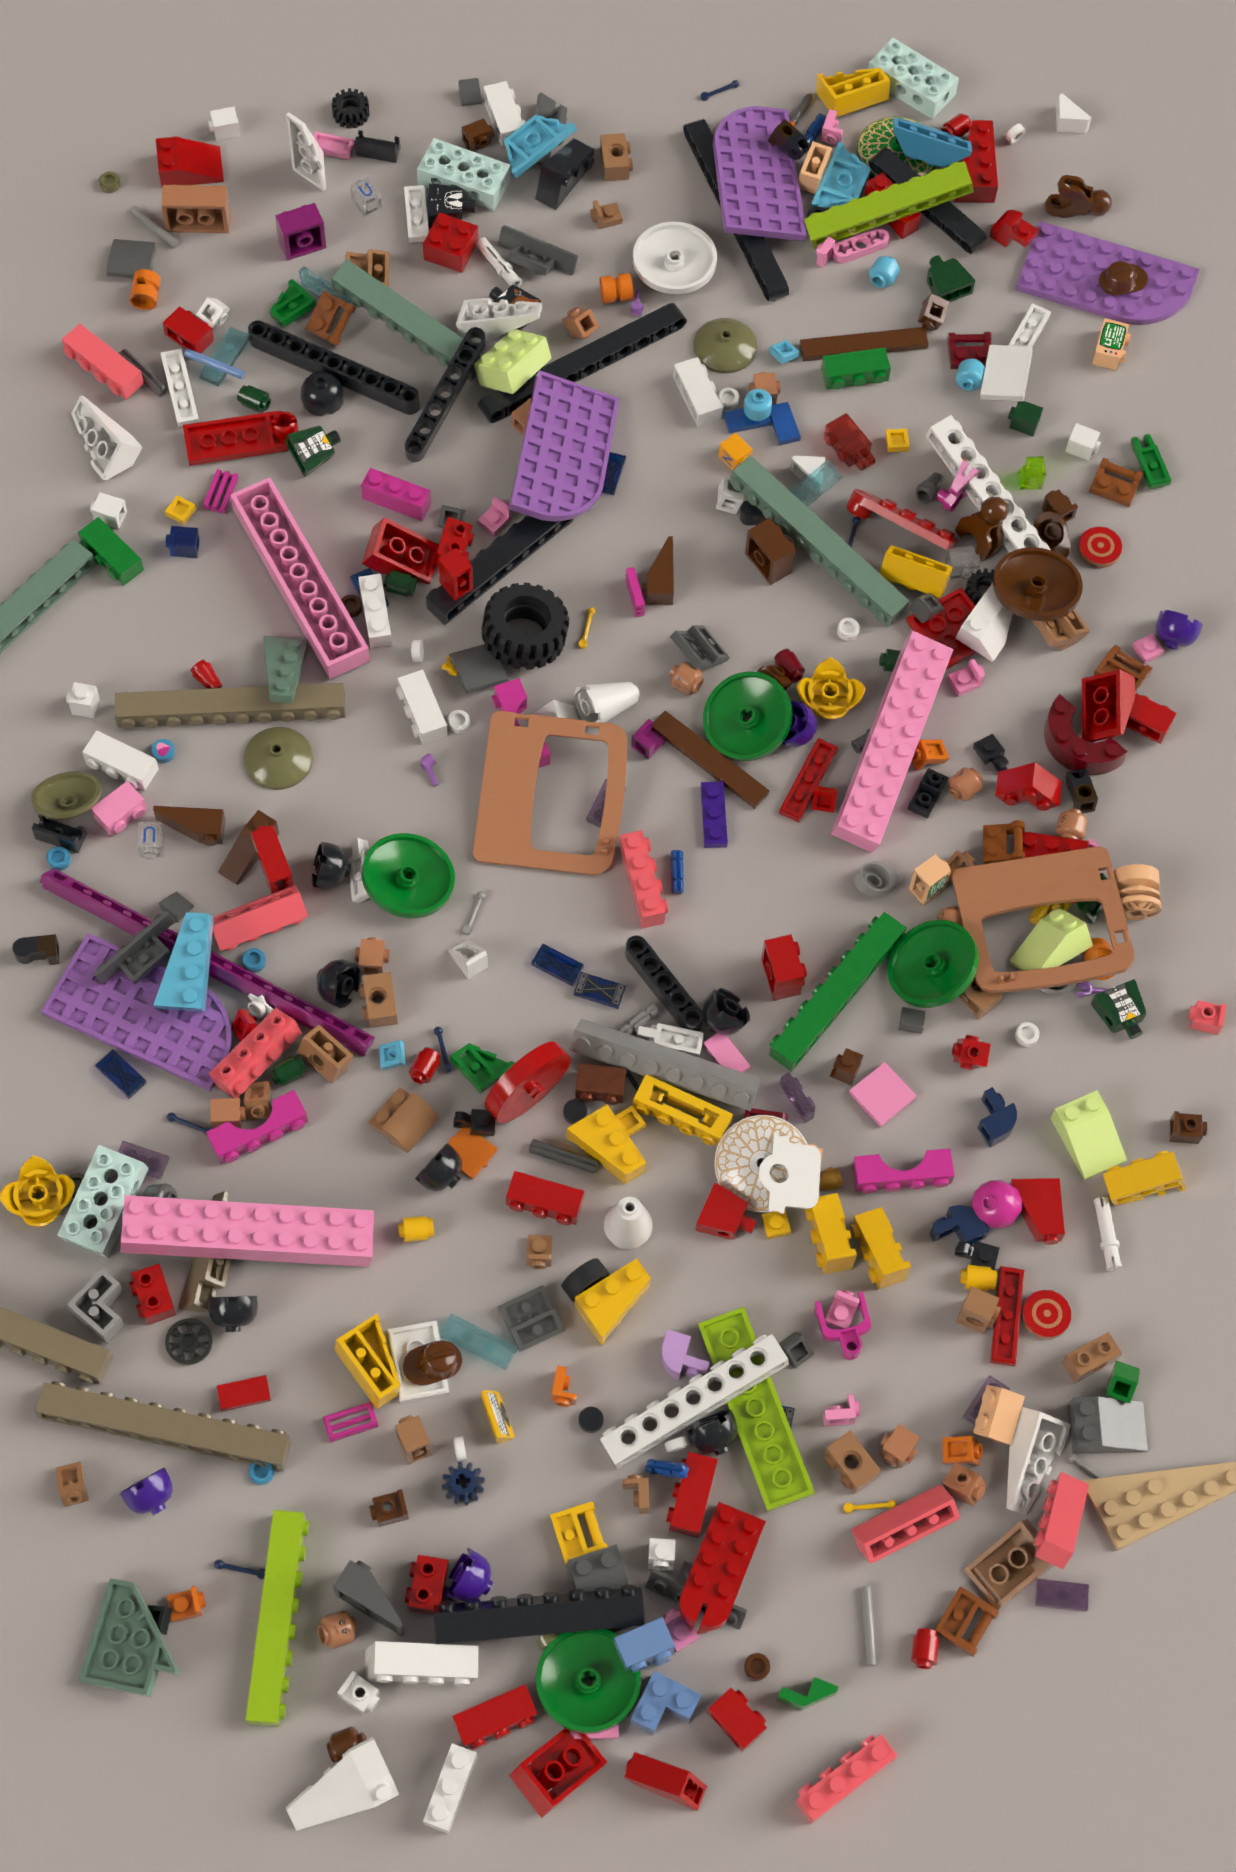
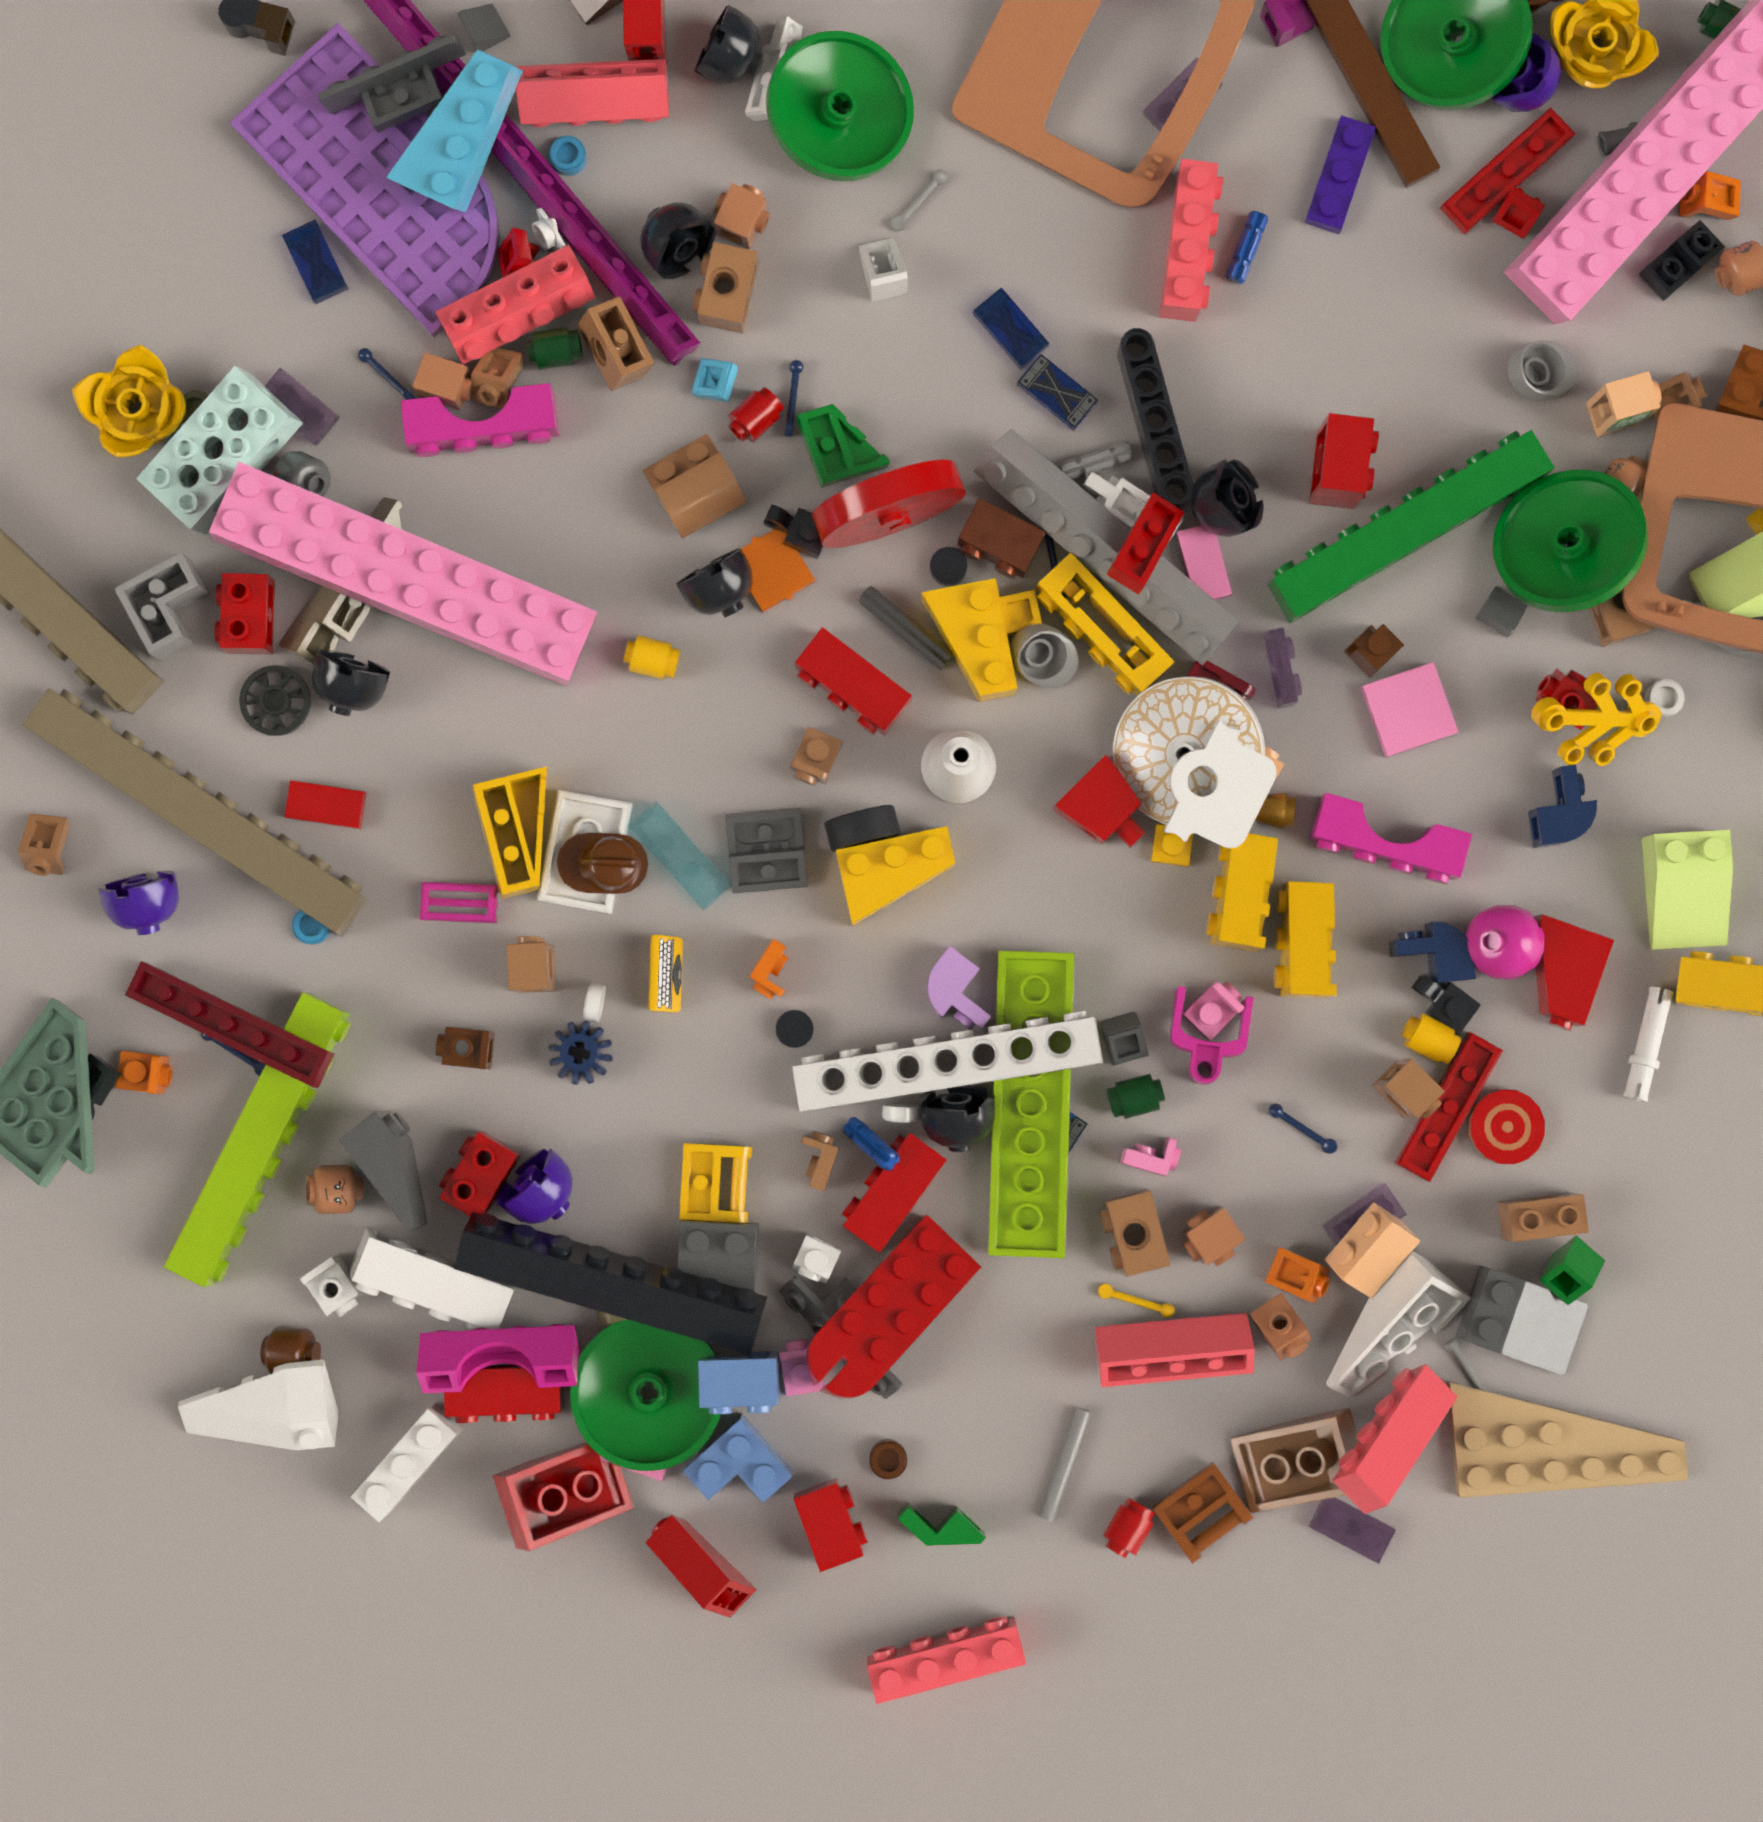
camera: 25 degrees right, 20 degrees up
(234, 1547) = (230, 1024): none -> dark red plate
(510, 1676) = (453, 1357): none -> dark pink arch
(654, 1141) = (1044, 655): none -> light grey hat
(688, 1051) = (1145, 543): none -> red plate
(817, 1379) = (1135, 1096): none -> dark green brick
(946, 1366) = (1328, 1145): none -> dark blue hinge
(1017, 1050) = (1637, 720): none -> yellow plant

